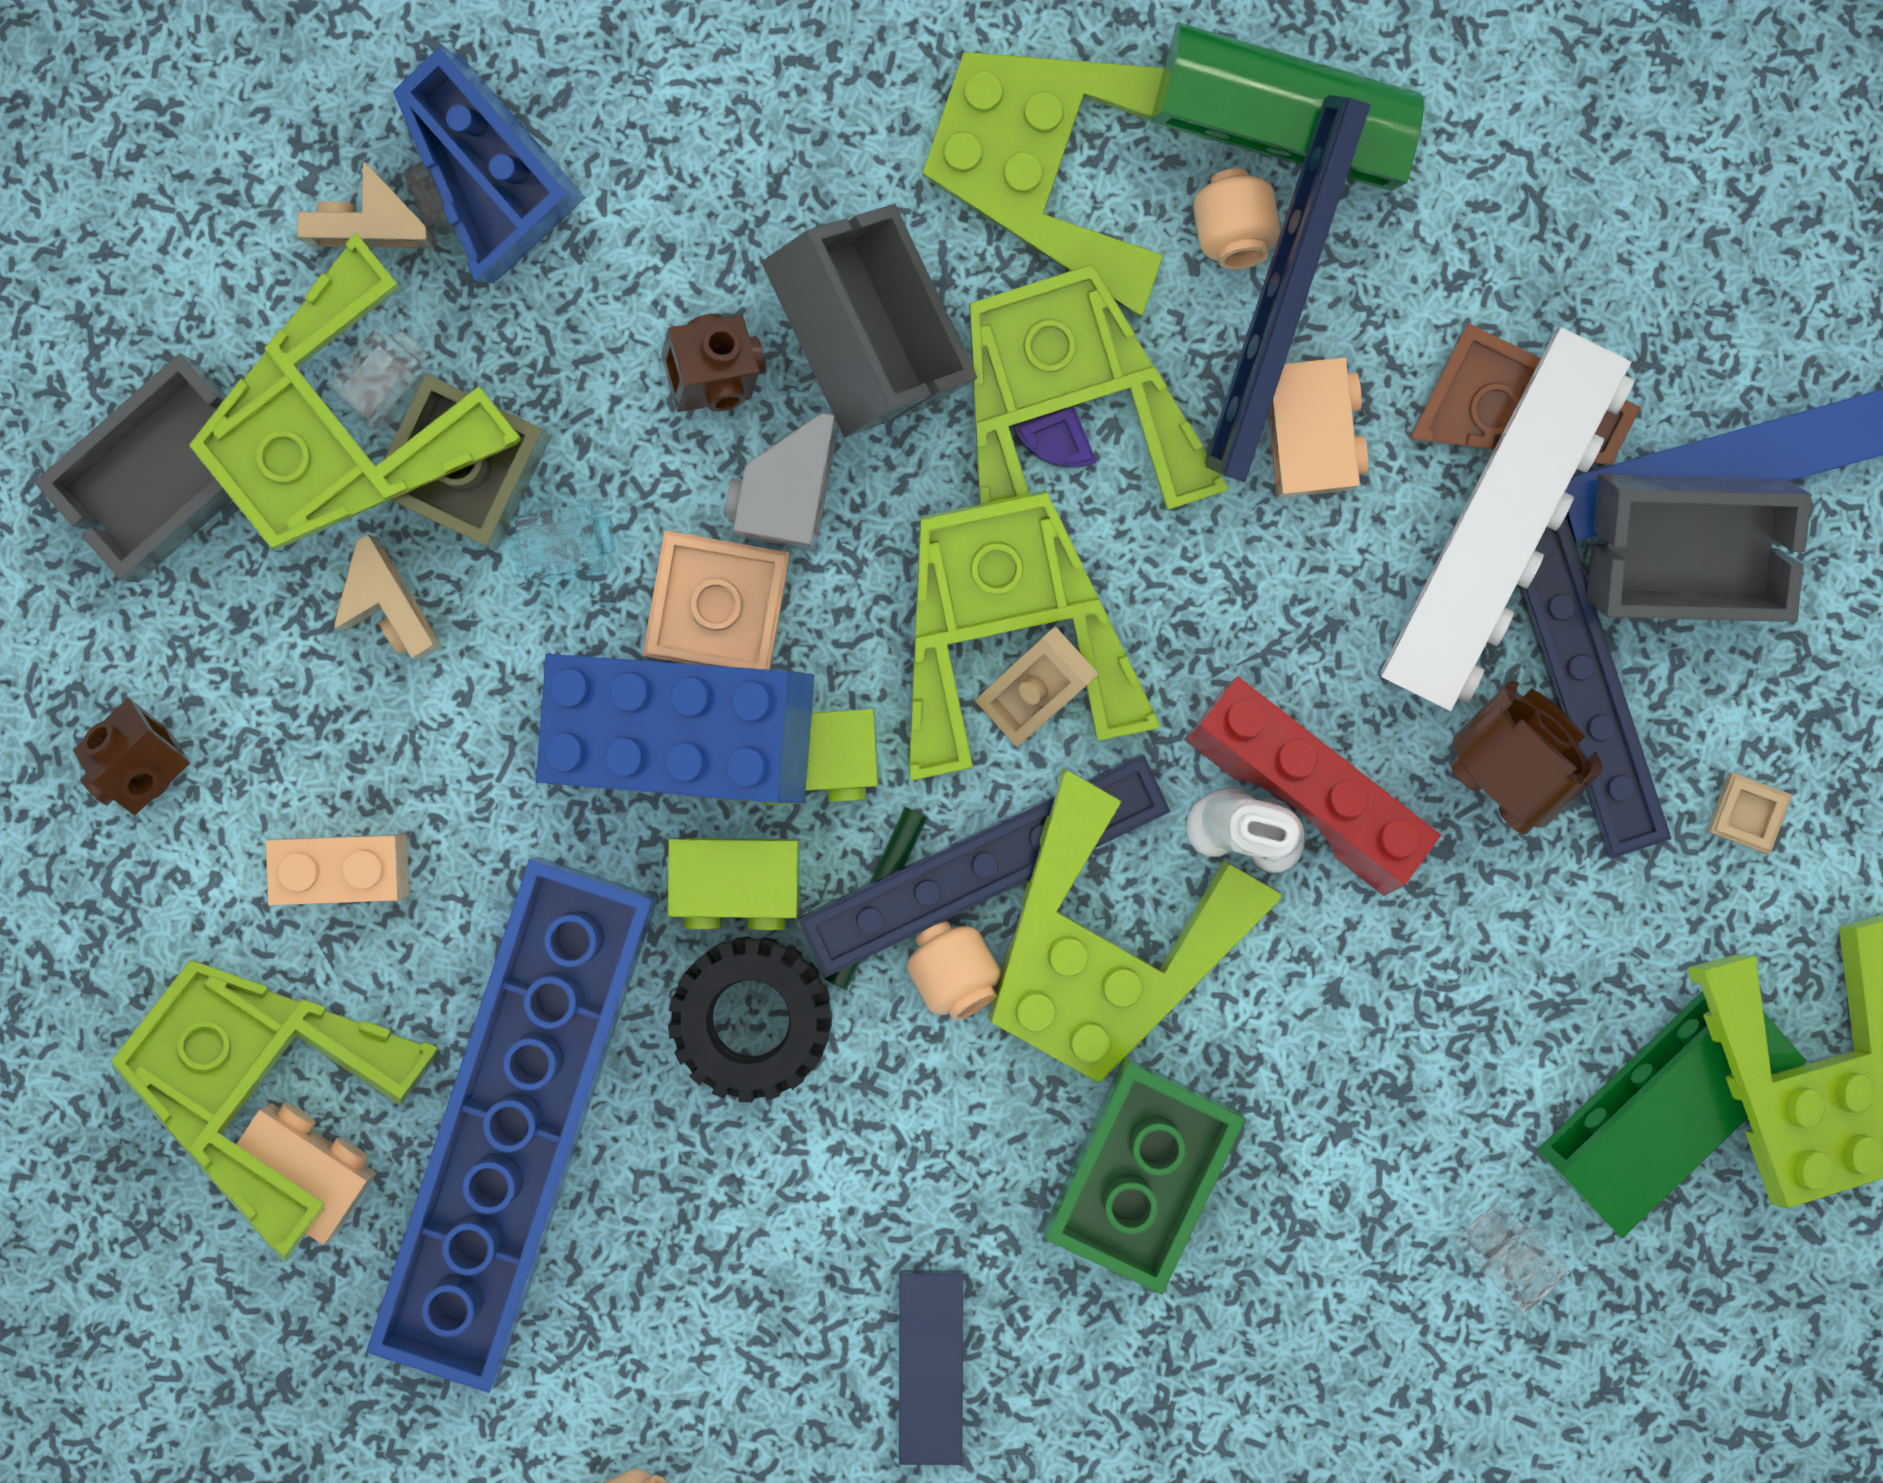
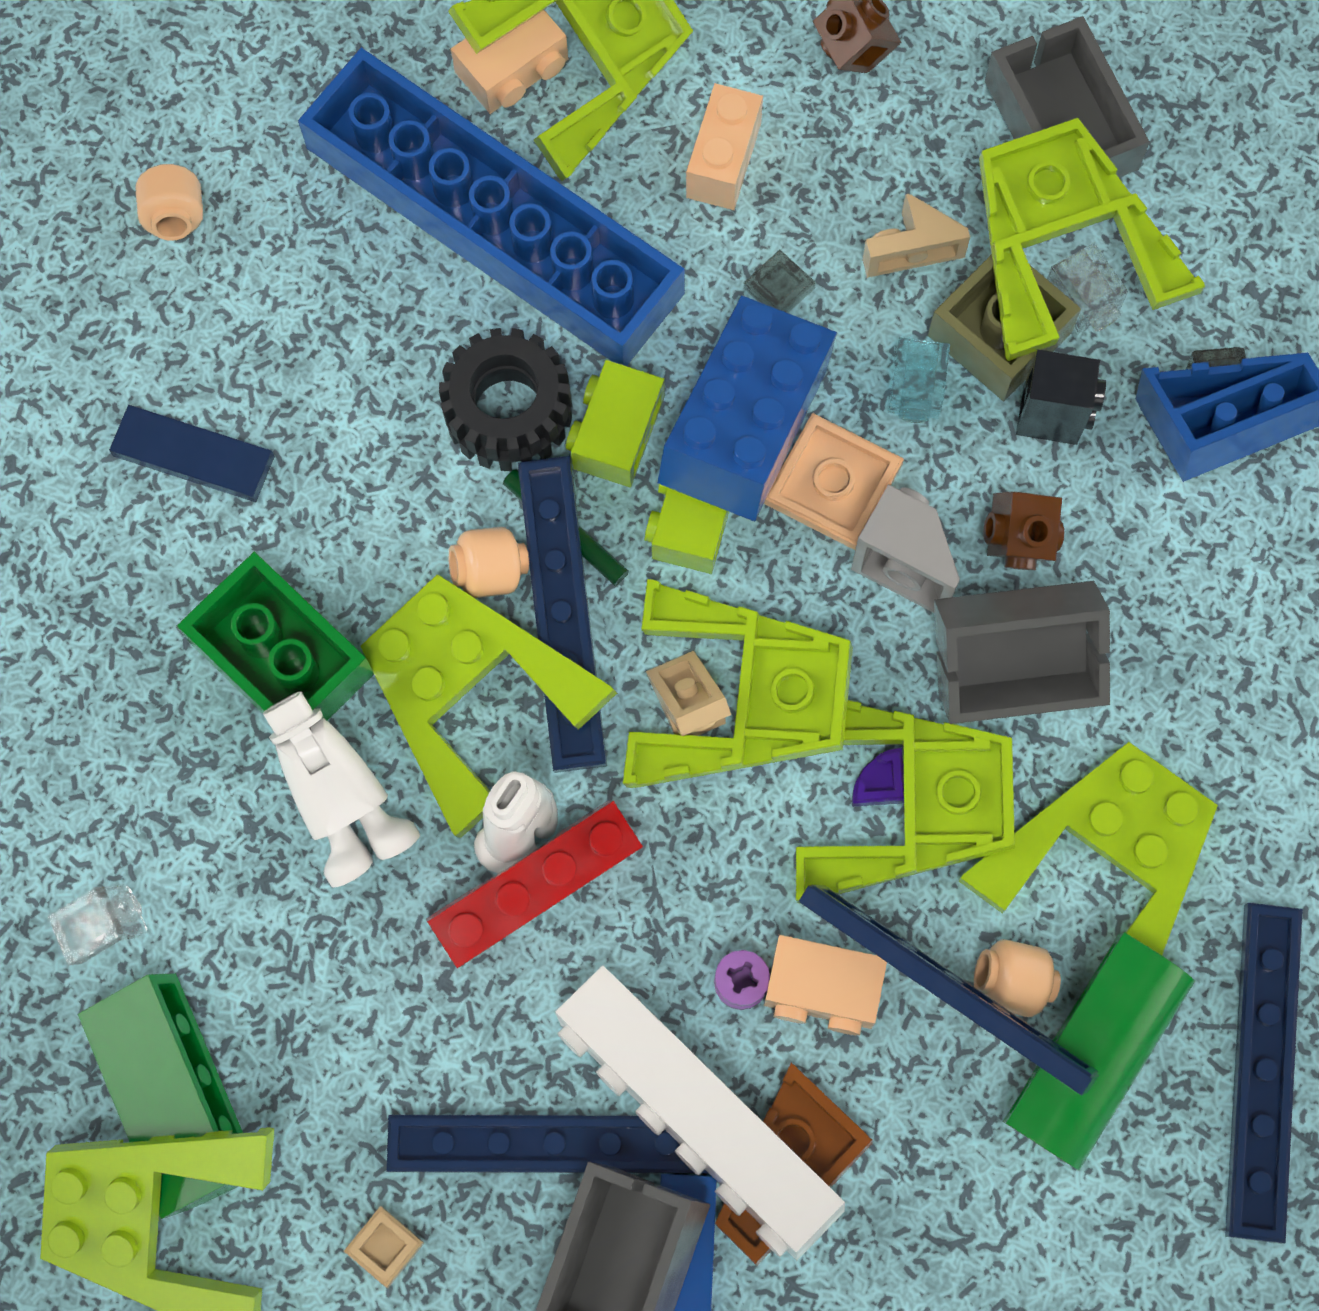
camera: 110 degrees right, 15 degrees down
(382, 224) = (1211, 321): tan slope -> none
(489, 747) = (779, 283): none -> clear smoke tile
(540, 366) = (1060, 397): none -> black brick
(1290, 1041) = (334, 790): none -> white piece
(1325, 531) = (737, 989): none -> medium lavender wheel
(1524, 757) = (496, 1060): reddish brown brick -> none

